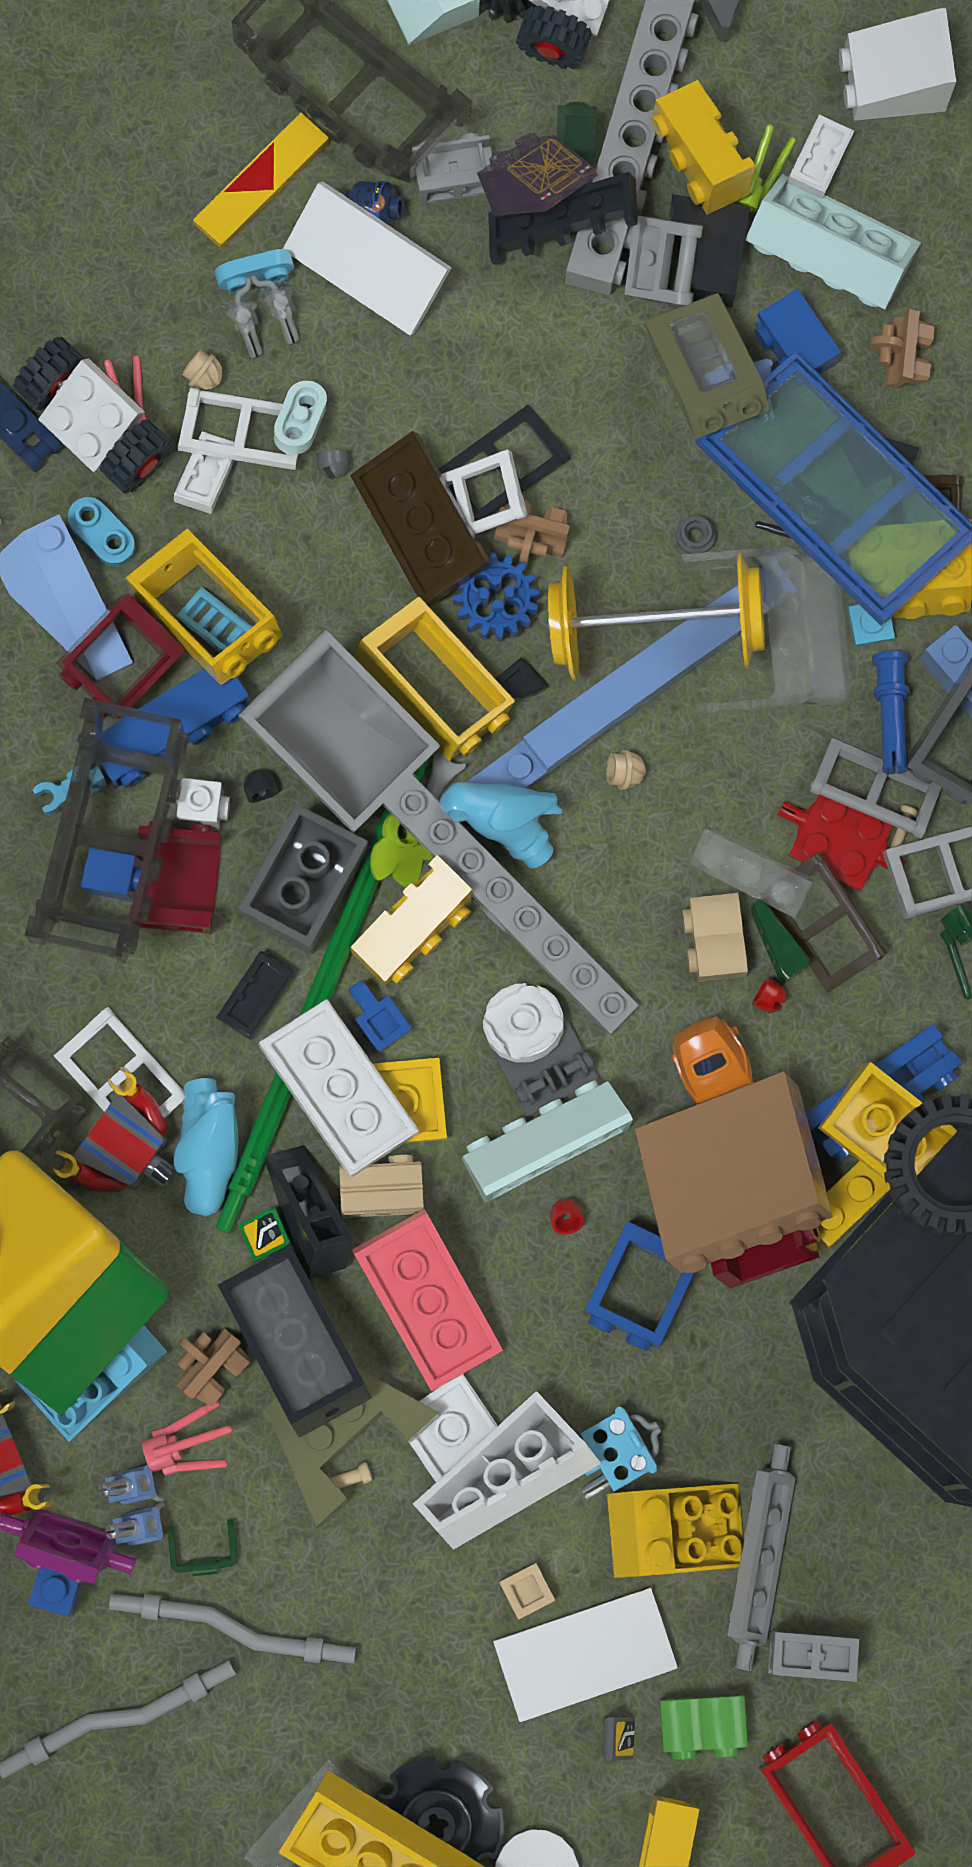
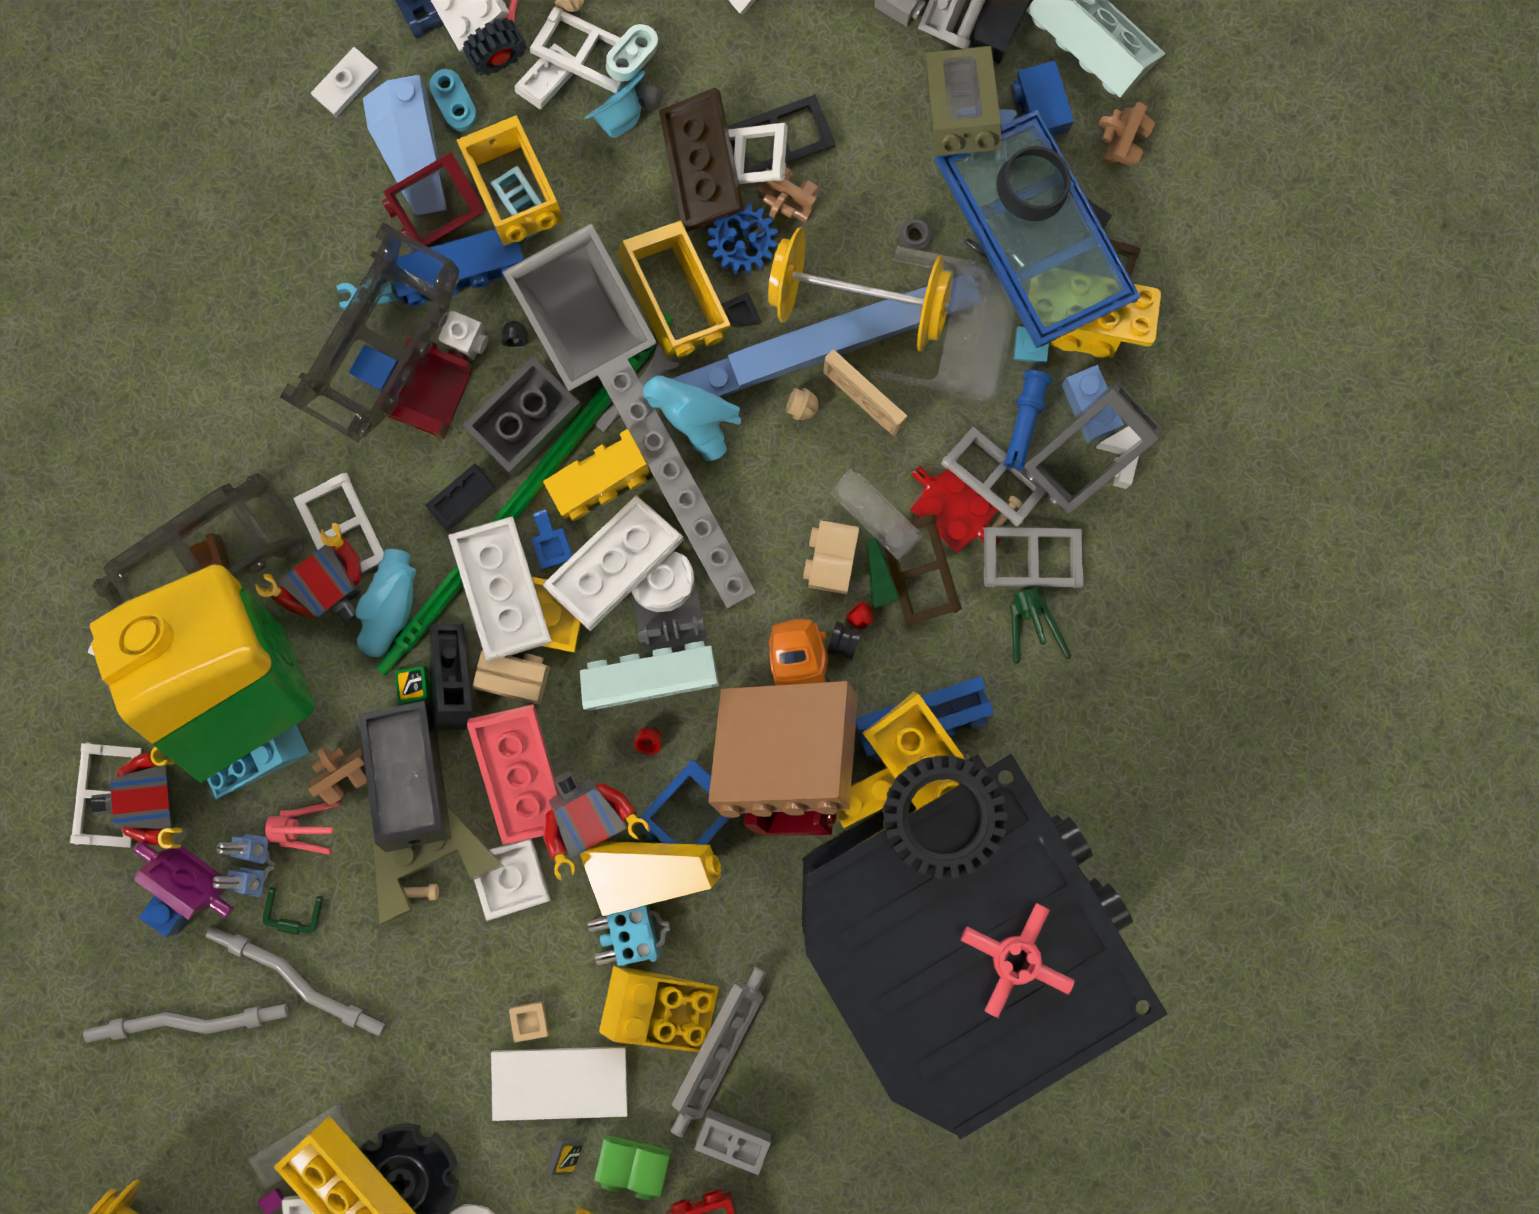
camera: 25 degrees right, 5 degrees up
(306, 487) = (620, 110): none -> medium azure piece
(398, 856) = (601, 420): lime plate -> none
(461, 1018) = (613, 562): none -> white tile
(506, 1472) = (538, 927): white wedge -> none
(522, 1326) = (584, 817): none -> torso
(615, 1369) = (646, 873): none -> slope
(695, 735) = (864, 393): none -> tan tile
(760, 1031) = (844, 640): none -> black wheel
(804, 468) = (1017, 206): none -> black tyre

